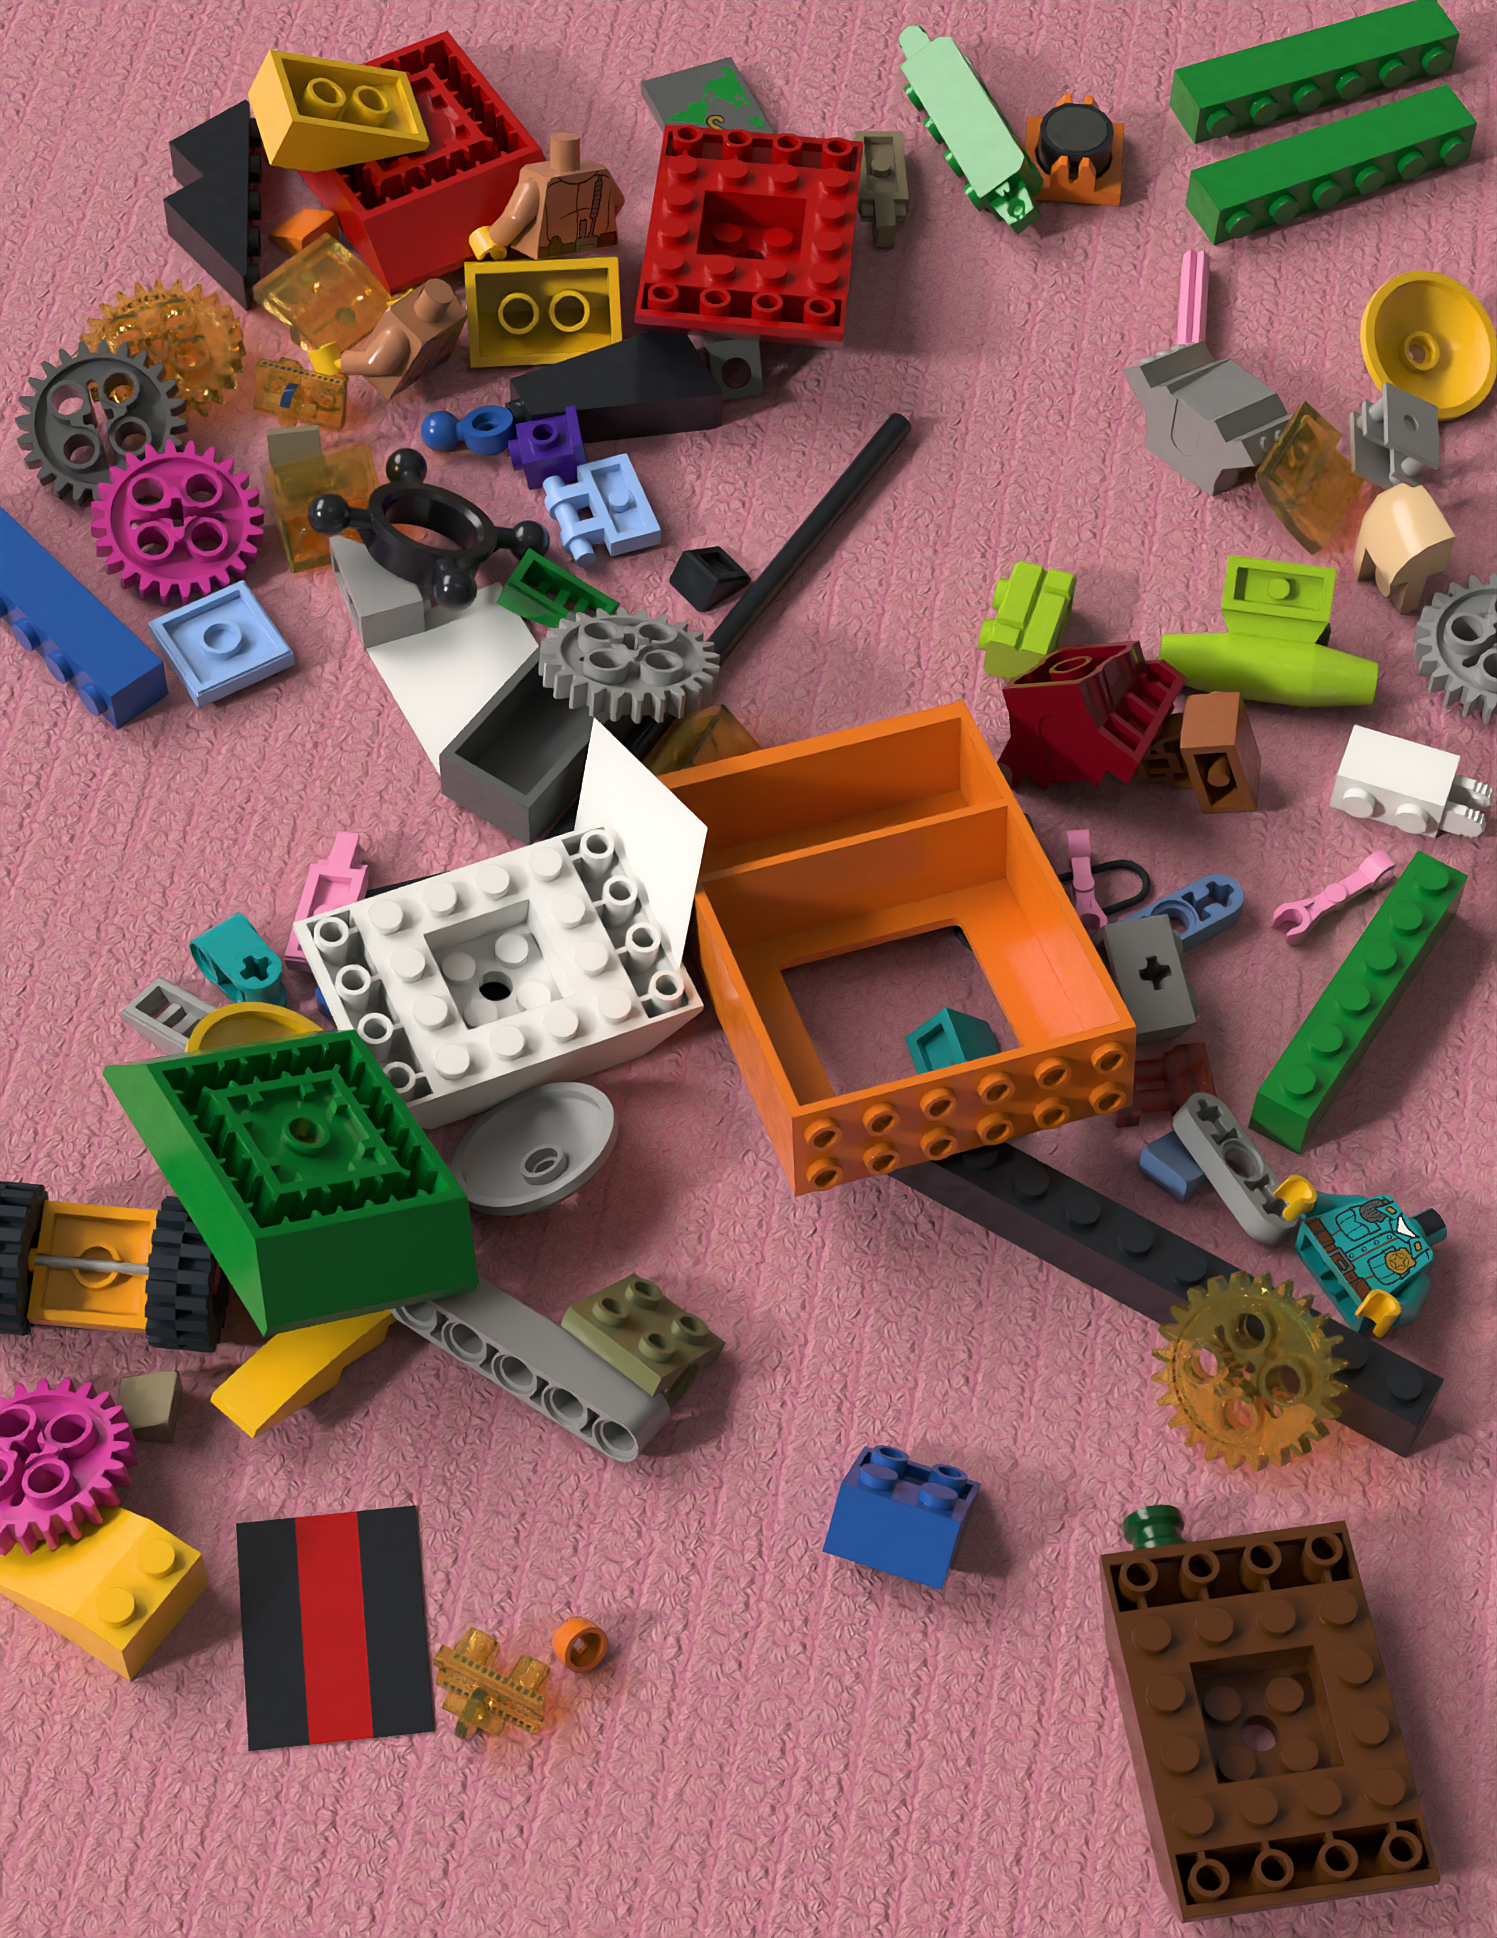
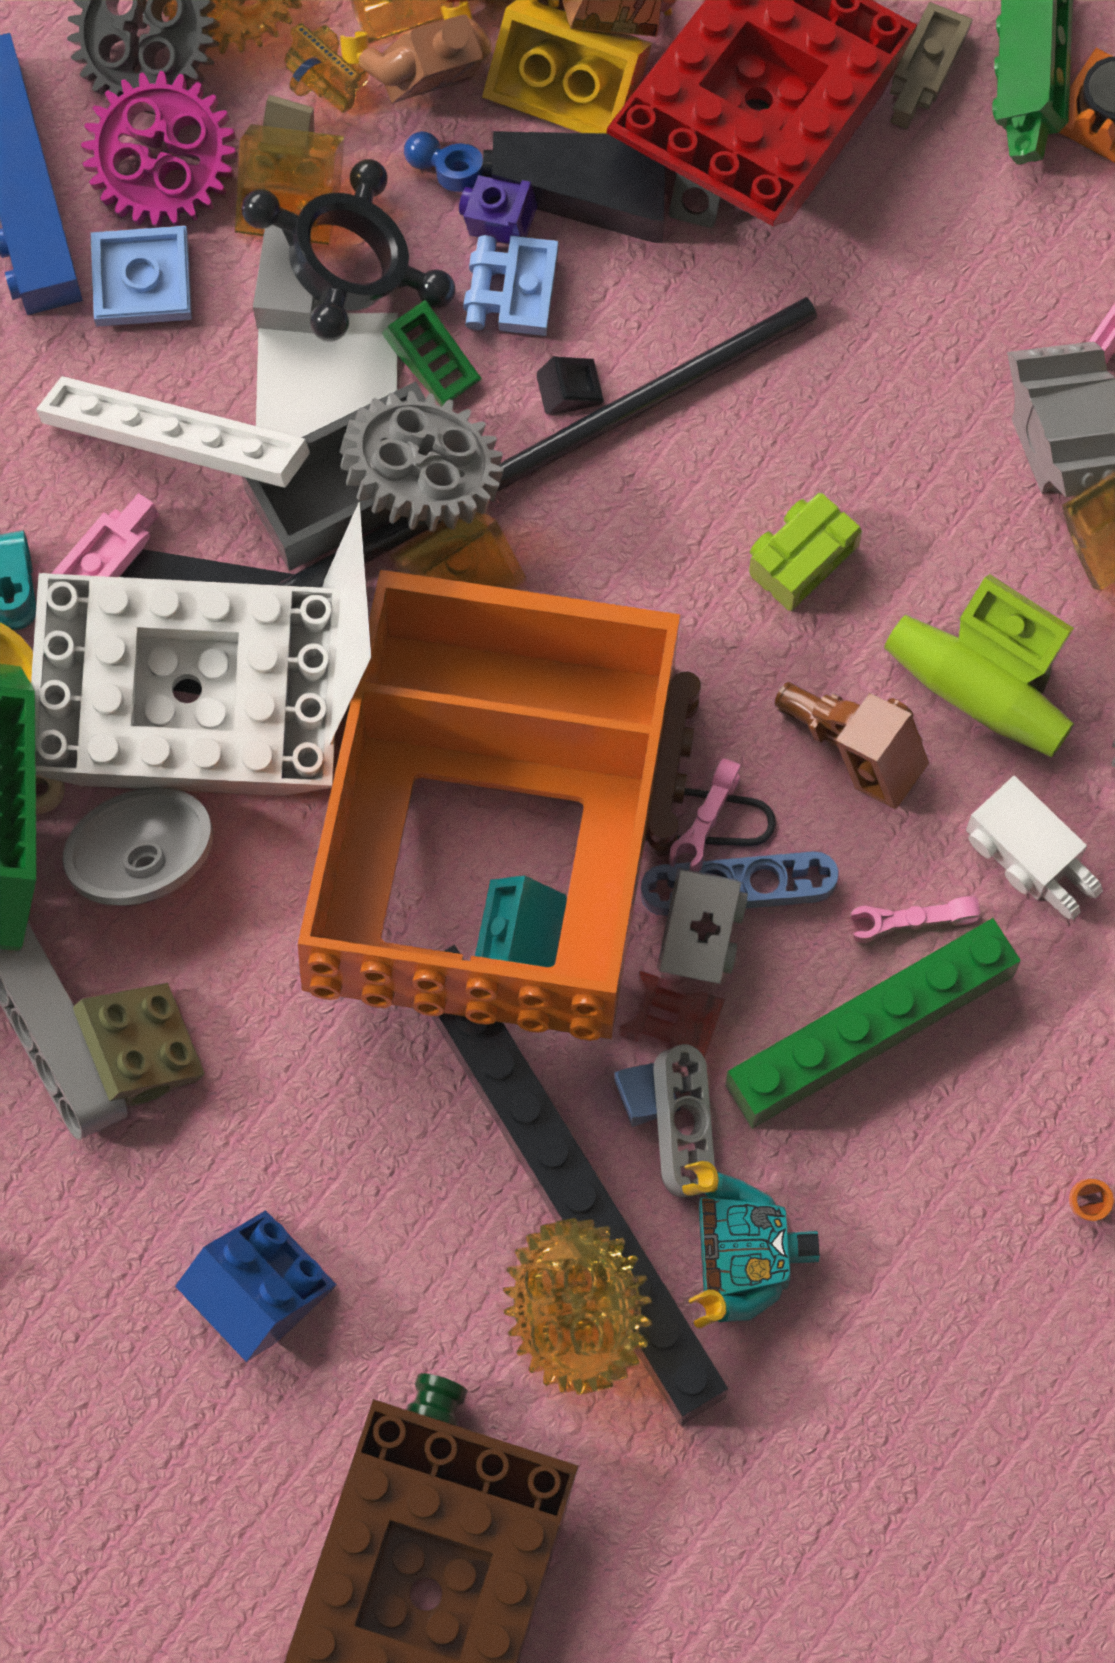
camera: 30 degrees right, 15 degrees up
(347, 753) = (174, 431): none -> white plate
(1087, 713) = (787, 665): dark red slope -> none

